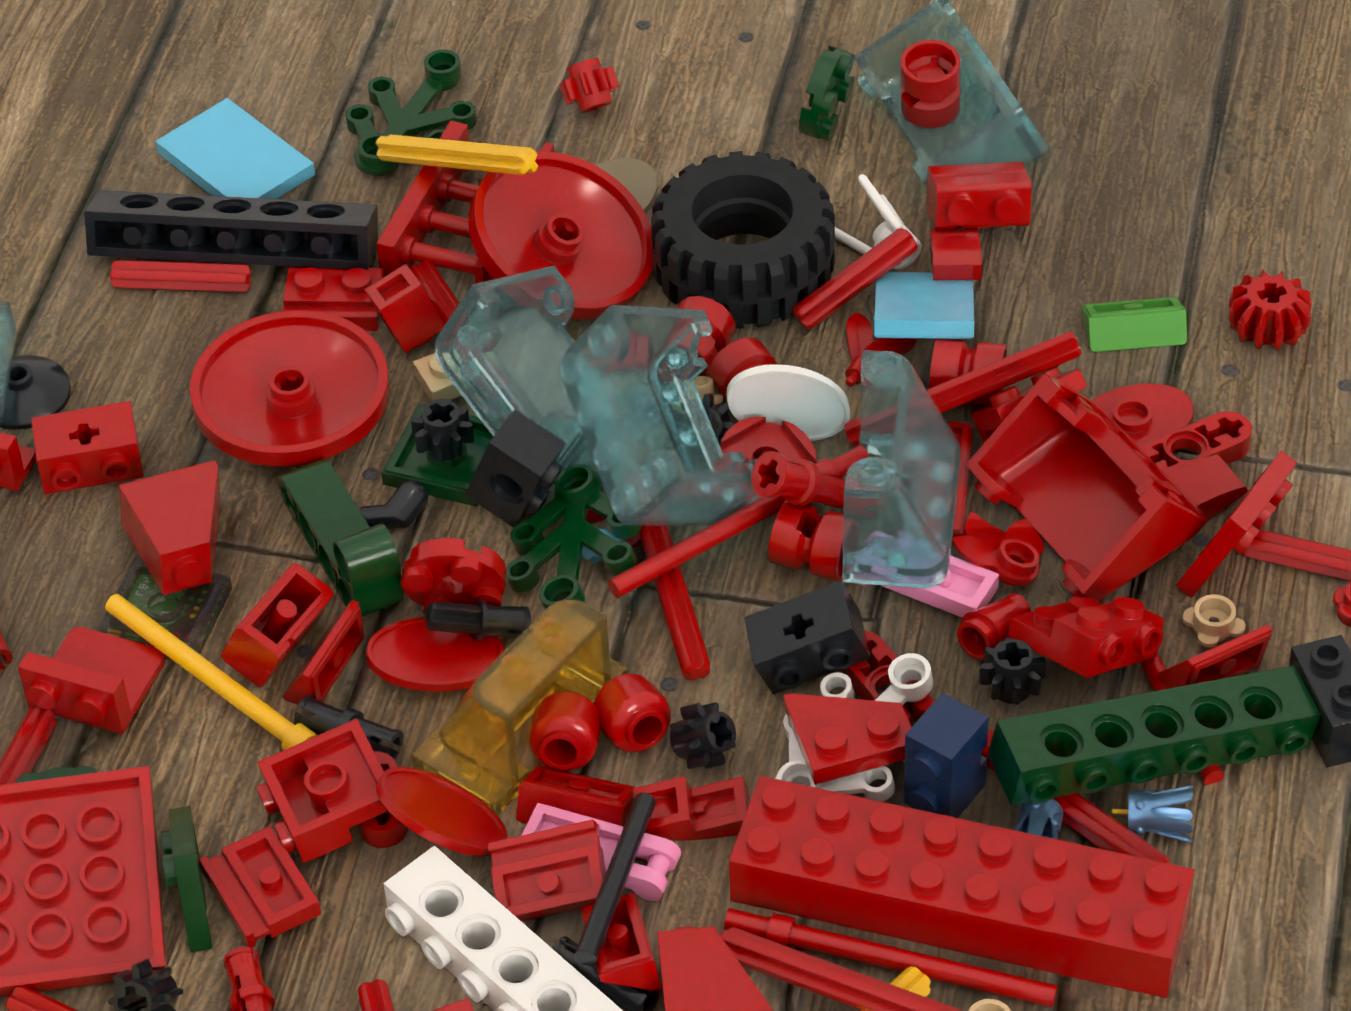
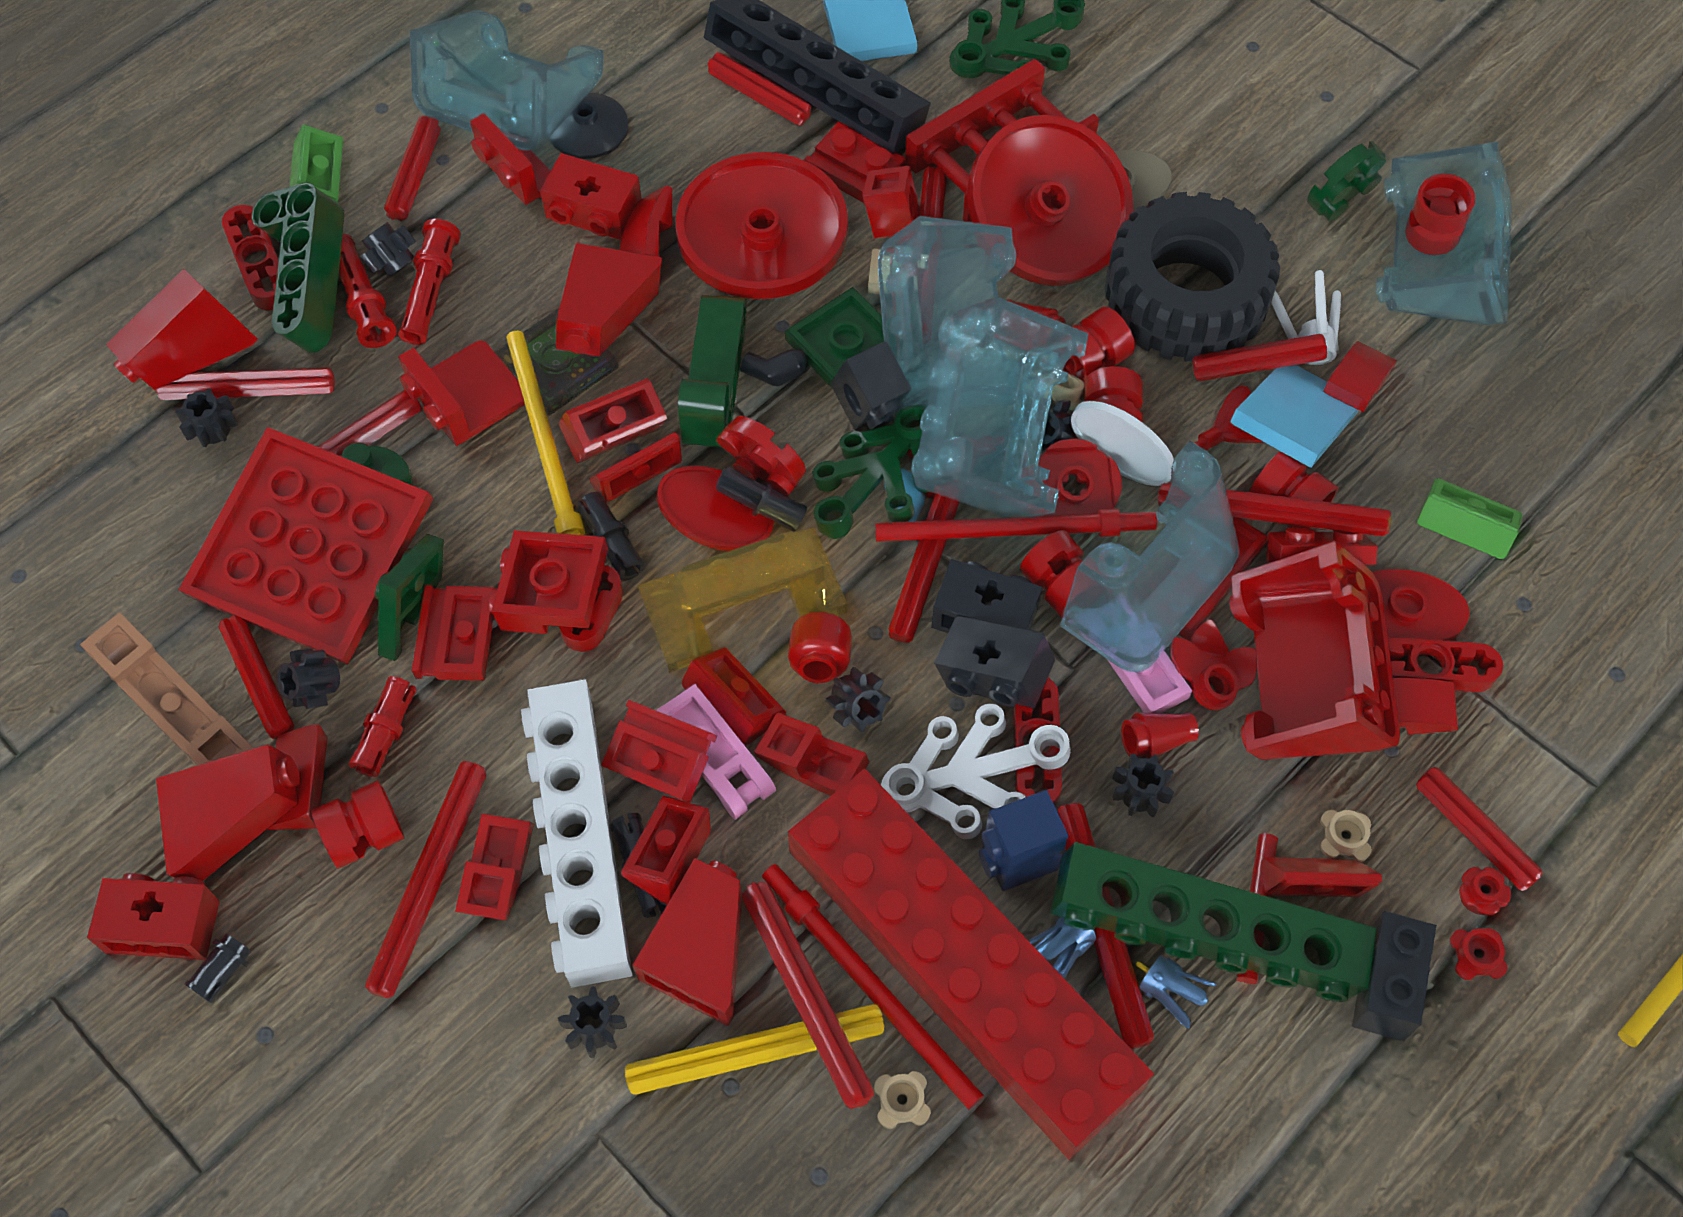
camera: 30 degrees right, 15 degrees up
(167, 439) = (646, 221): none -> red slope
(440, 810) = (614, 651): red piece -> none
(442, 430) = (844, 321): black gear -> none
(457, 154) = (1008, 93): yellow axle -> none
(565, 731) = (758, 633): red head -> none
(589, 85) = (1167, 79): red gear -> none
(615, 879) = (695, 791): black bar -> none
(750, 589) = (970, 585): none -> black brick
(796, 481) = (1072, 523): red pin -> none
(846, 733) = (963, 768): red wing -> none
(979, 195) = (1413, 335): red brick -> none
(1091, 635) = (1223, 793): red plate -> none
(1242, 523) = (1438, 757): red wing -> none
(1269, 310) = (1593, 571): red gear -> none

